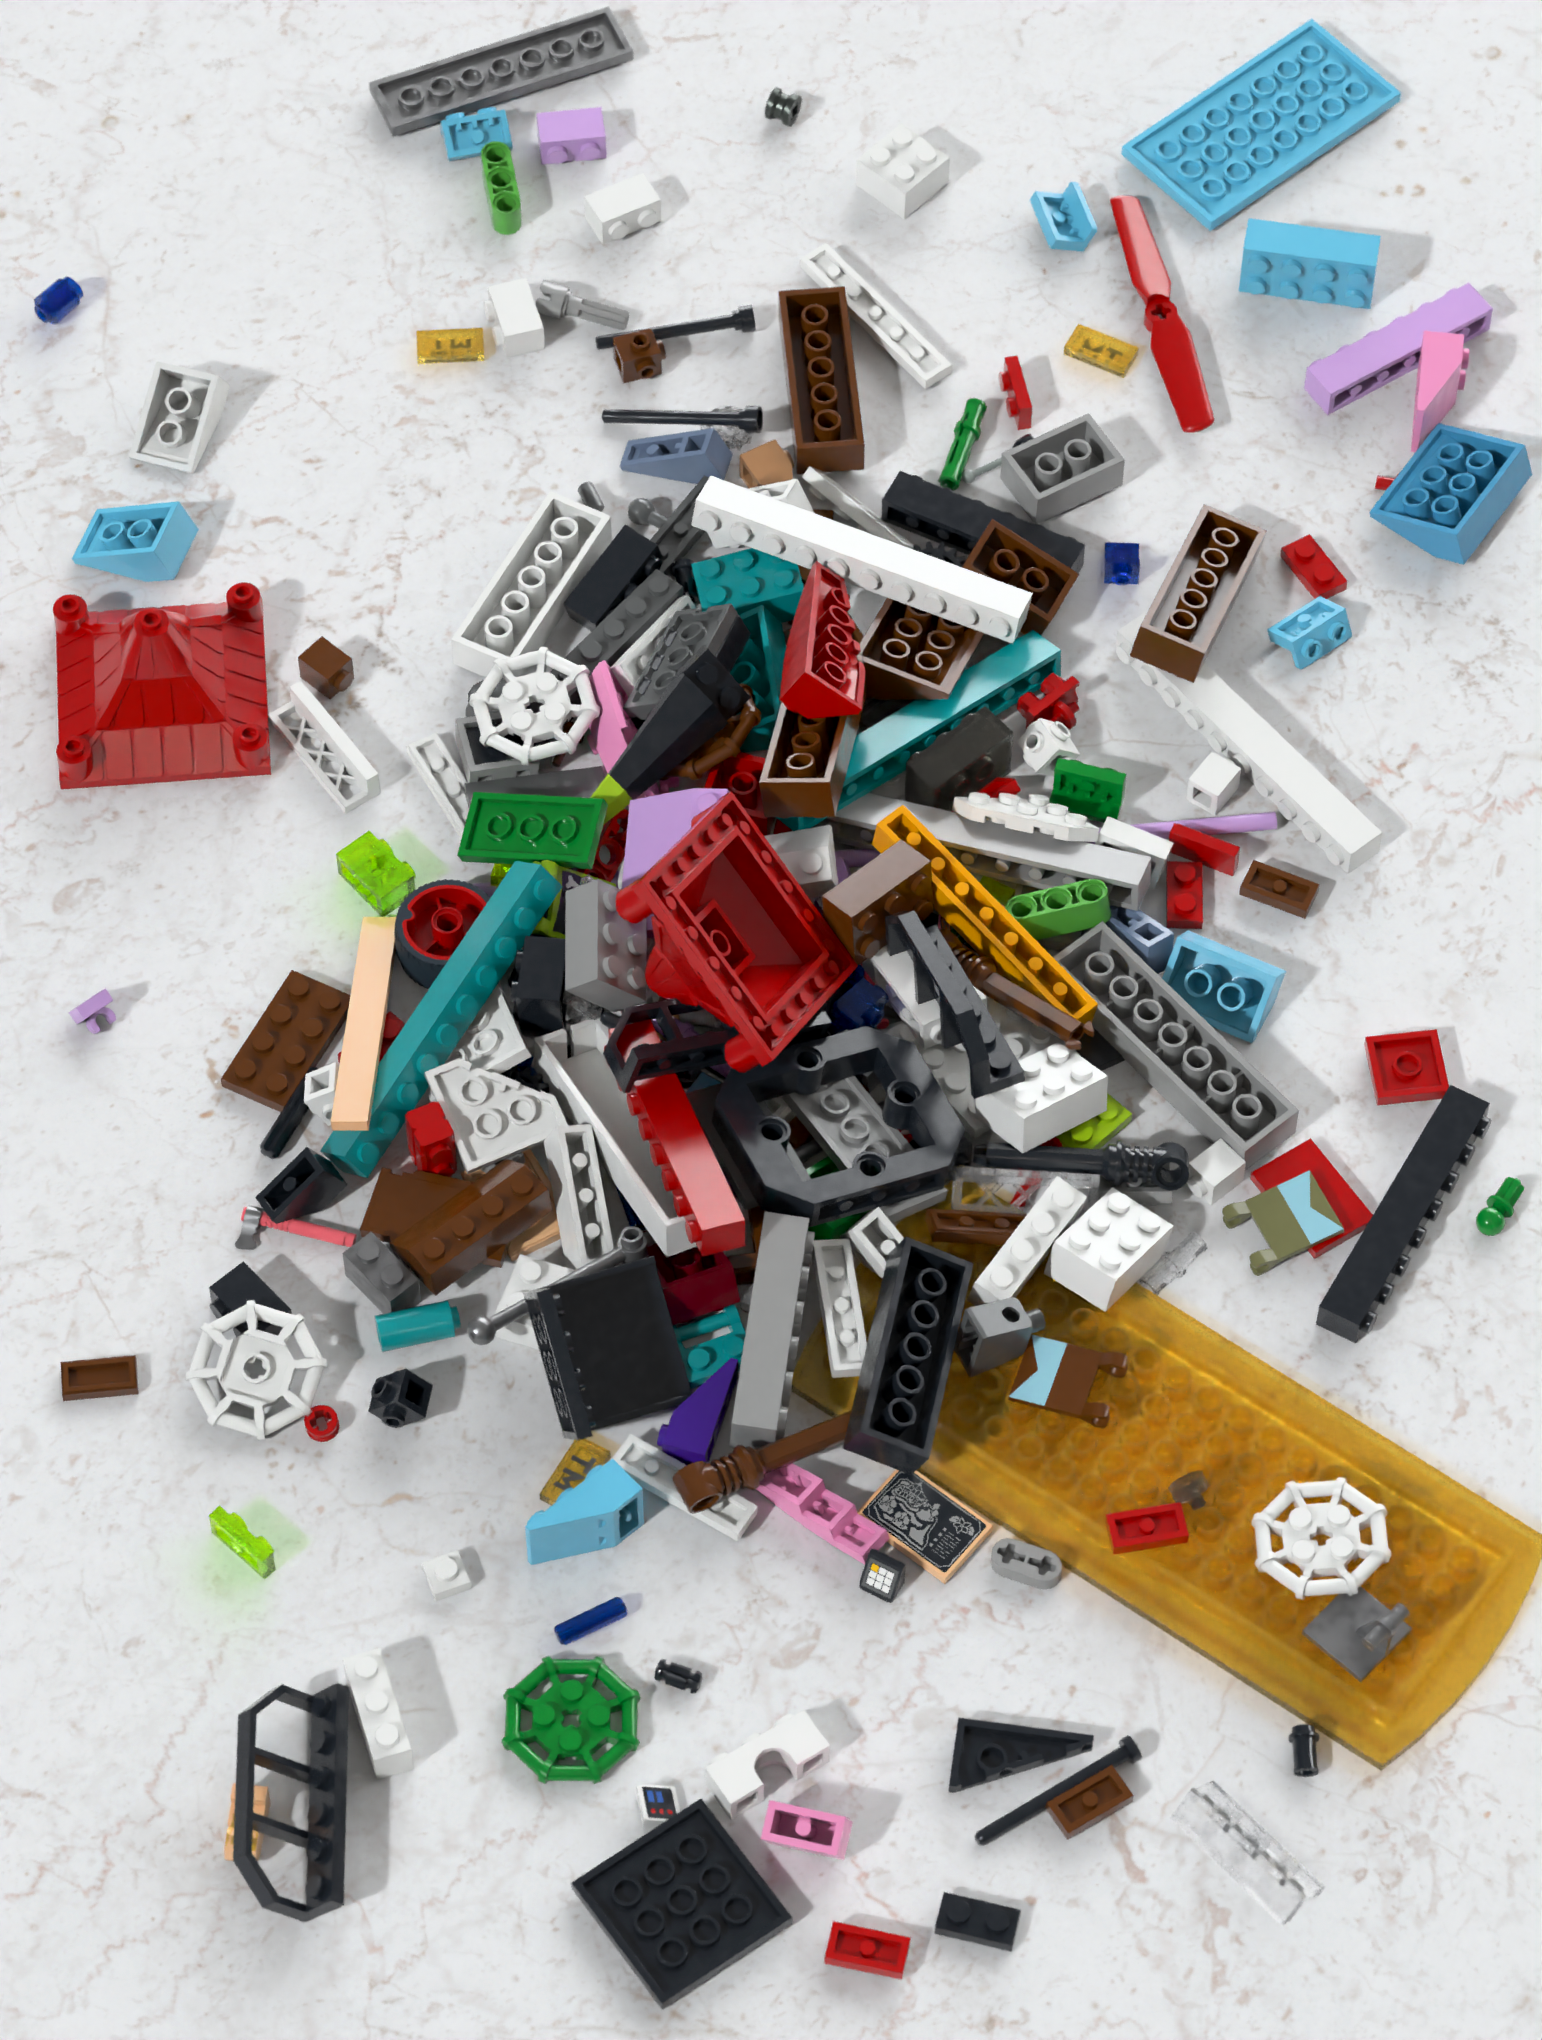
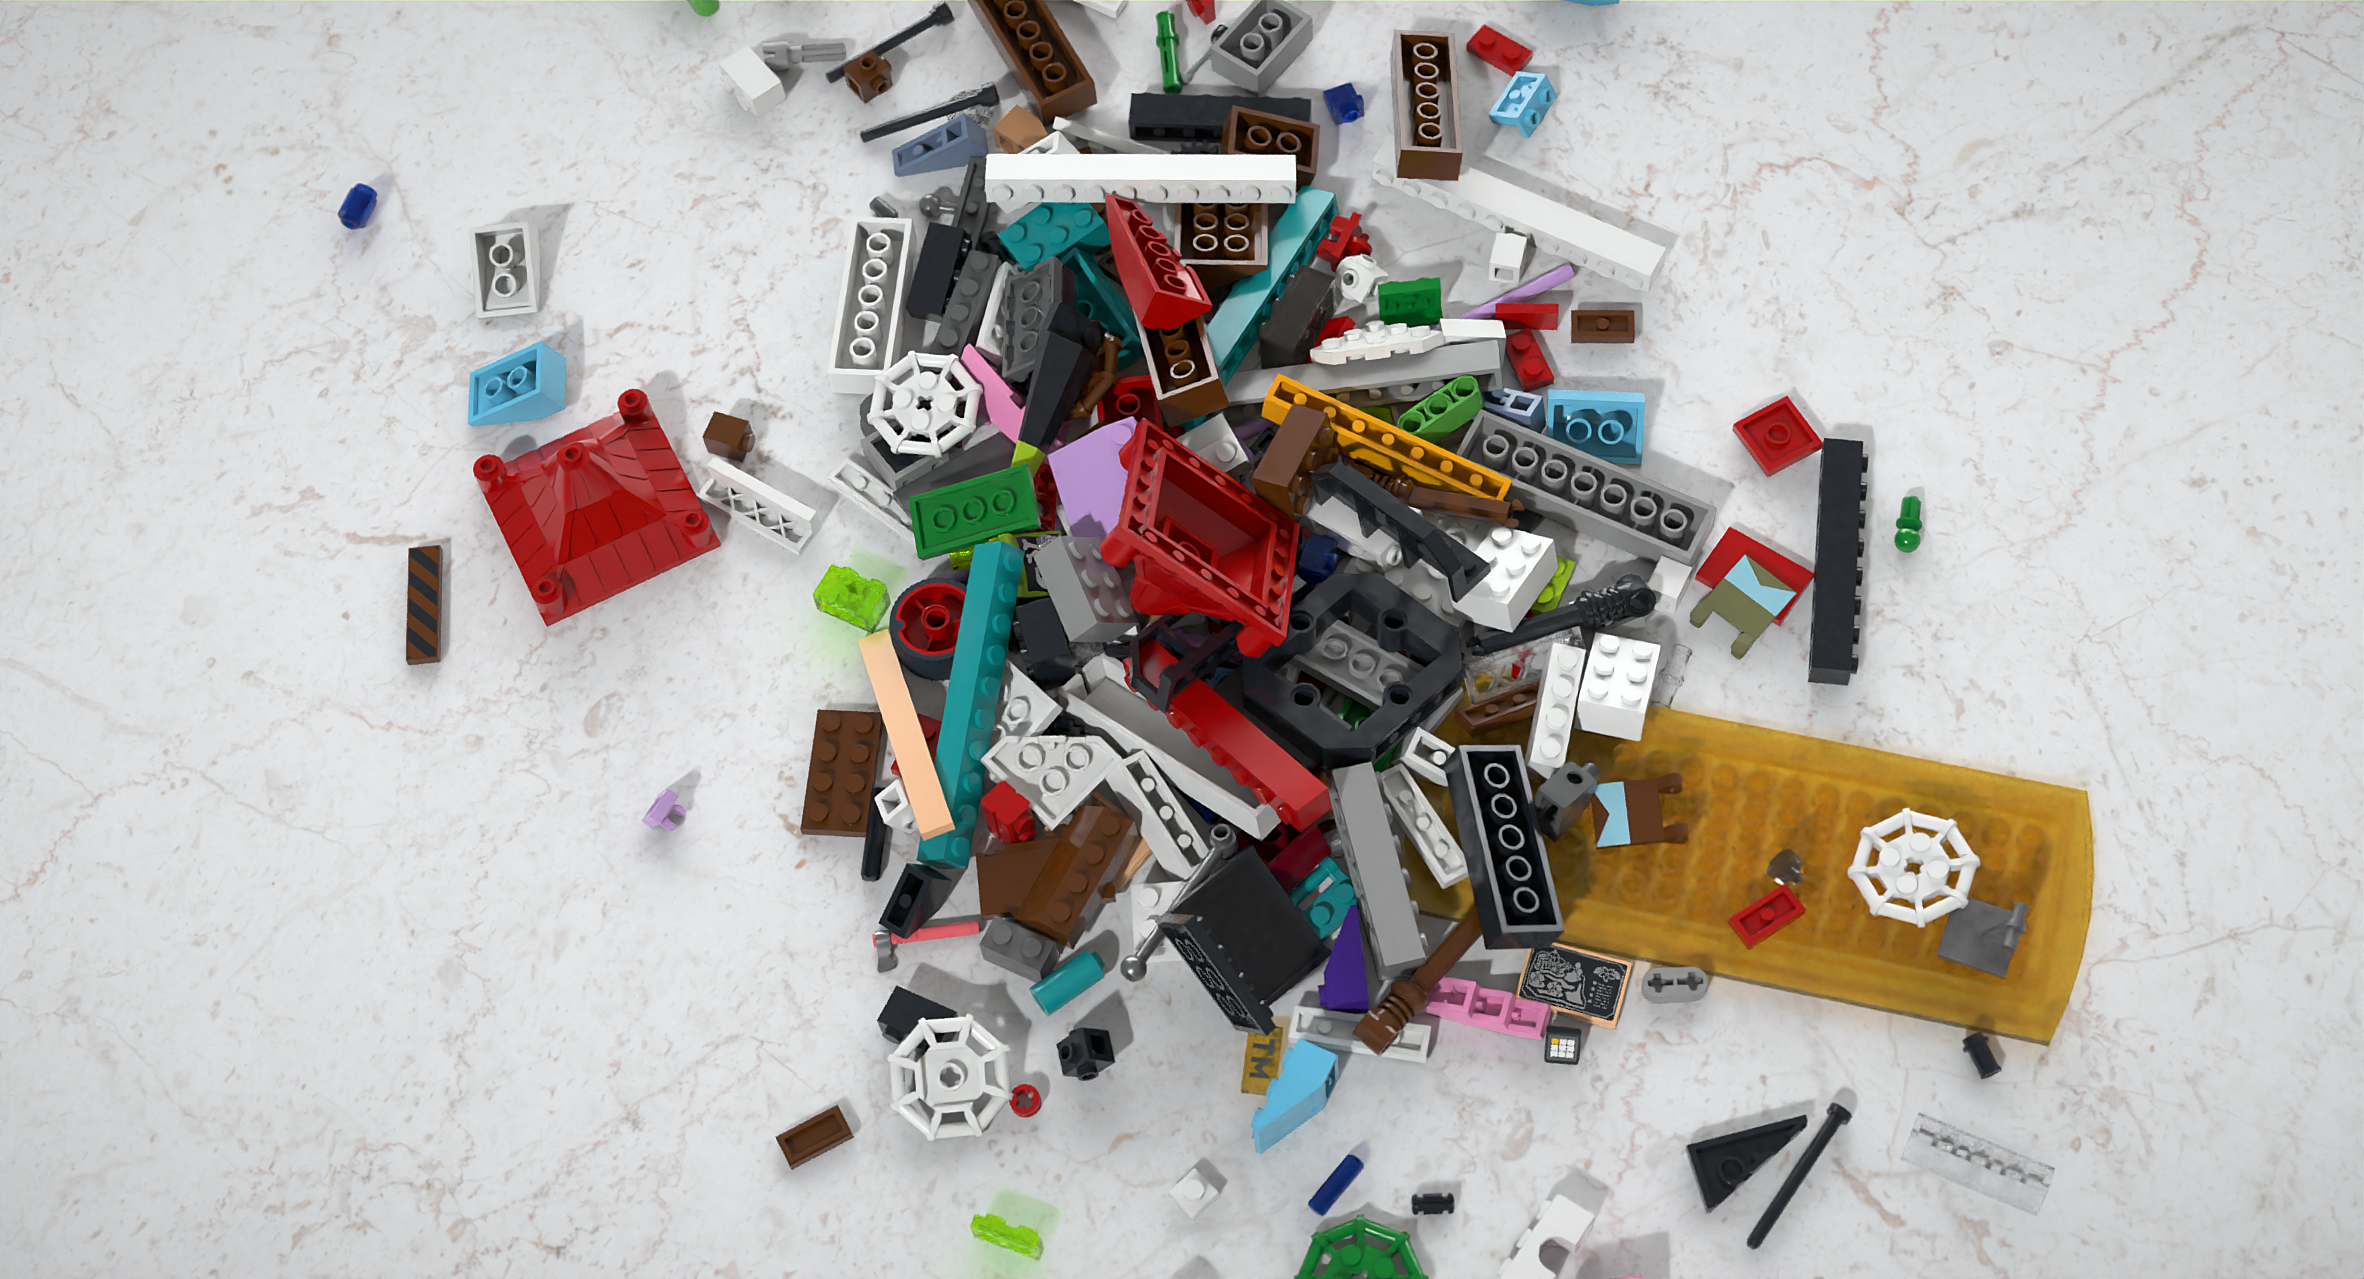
camera: 15 degrees left, 5 degrees up
(450, 345) = (707, 124): clear yellow tile -> none
(1089, 1802) = (1829, 1174): reddish brown plate -> none

